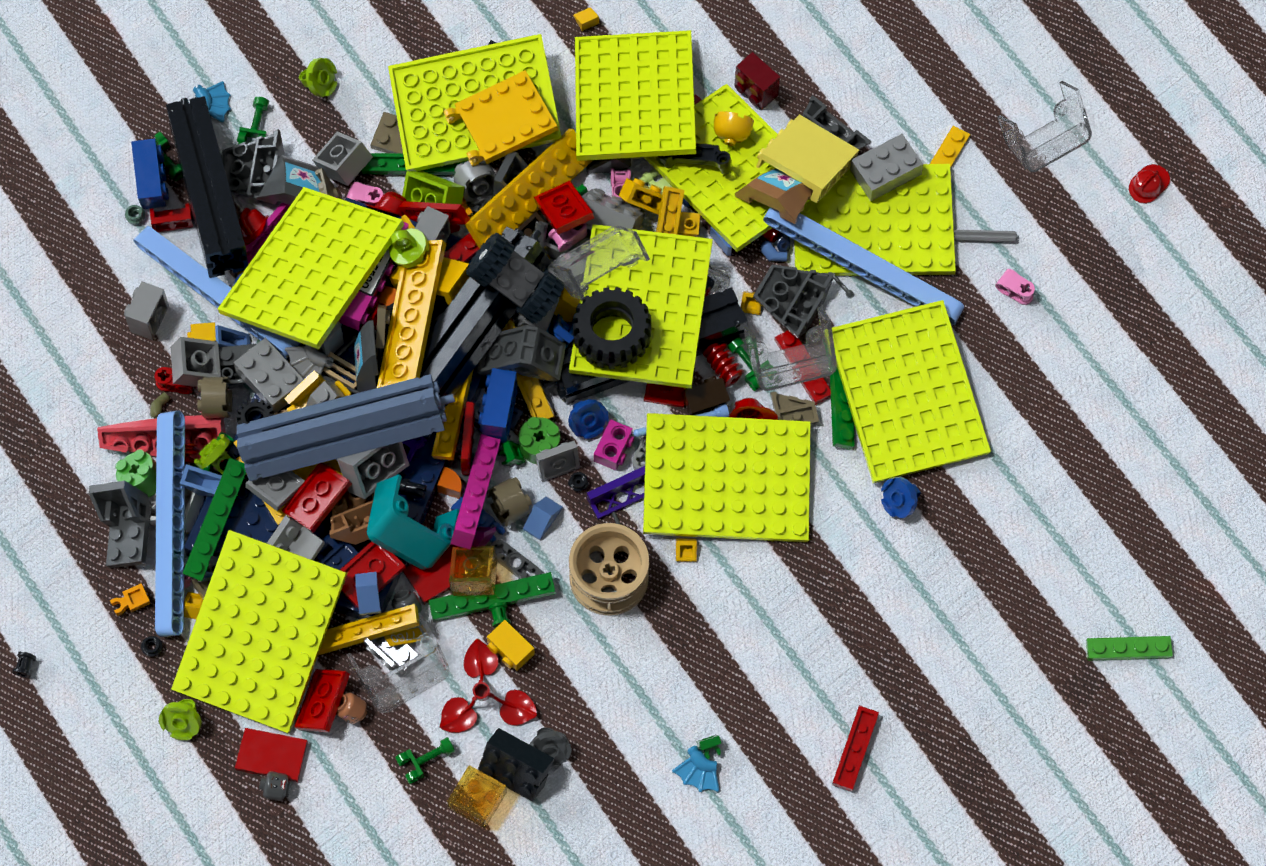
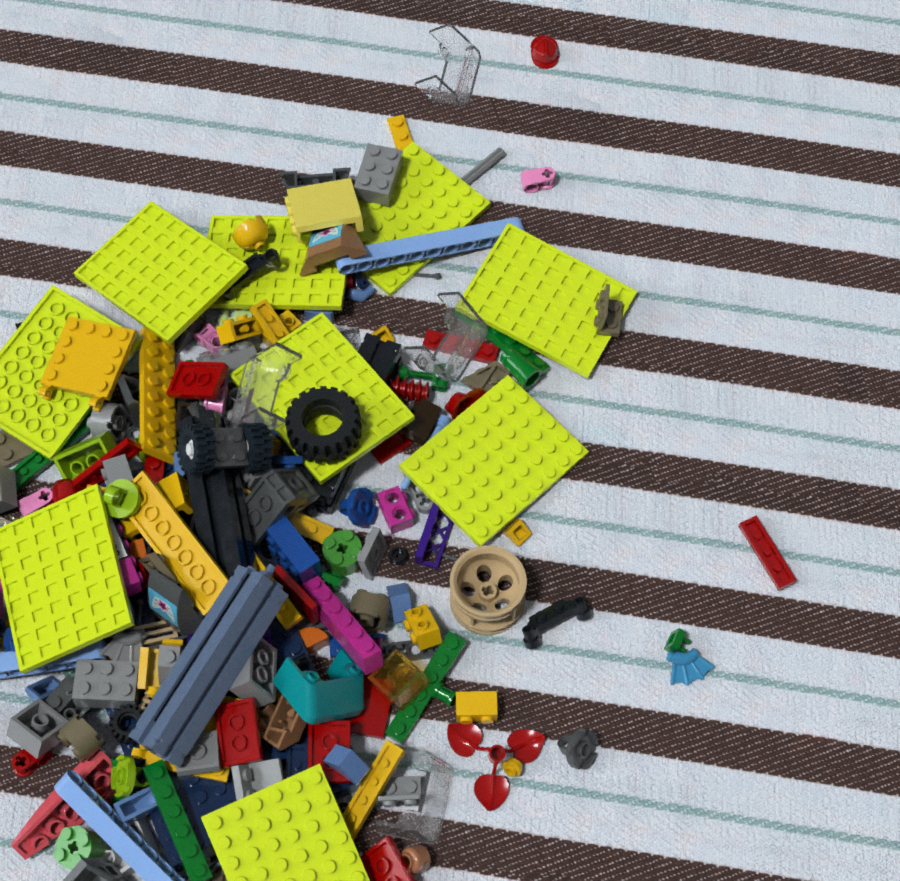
camera: 45 degrees left, 5 degrees down
(157, 404) = (36, 789): olive arm -> none
(203, 331) = (17, 703): yellow brick -> none
(403, 637) = (398, 774): yellow sticker -> none
(405, 598) = (371, 747): dark grey head -> none
(413, 776) = (508, 819): green bar -> none
(477, 796) = (569, 830): clear yellow brick -> none
(489, 714) = (512, 767): none -> yellow plate
(515, 764) = (572, 781): black piece -> none
(534, 550) = (422, 627): none -> yellow brick
(586, 18) = (67, 255): yellow slope -> none
(639, 635) = (552, 615): none -> black plate
(756, 81) = (232, 194): dark red brick -> none
(793, 295) = (406, 306): dark grey wedge -> none
(825, 426) = (520, 368): none -> green plant
(899, 497) = (616, 369): blue tile -> none
(940, 448) = (608, 315): none -> dark tan bracket
(1129, 648) = (851, 333): bright green plate -> none

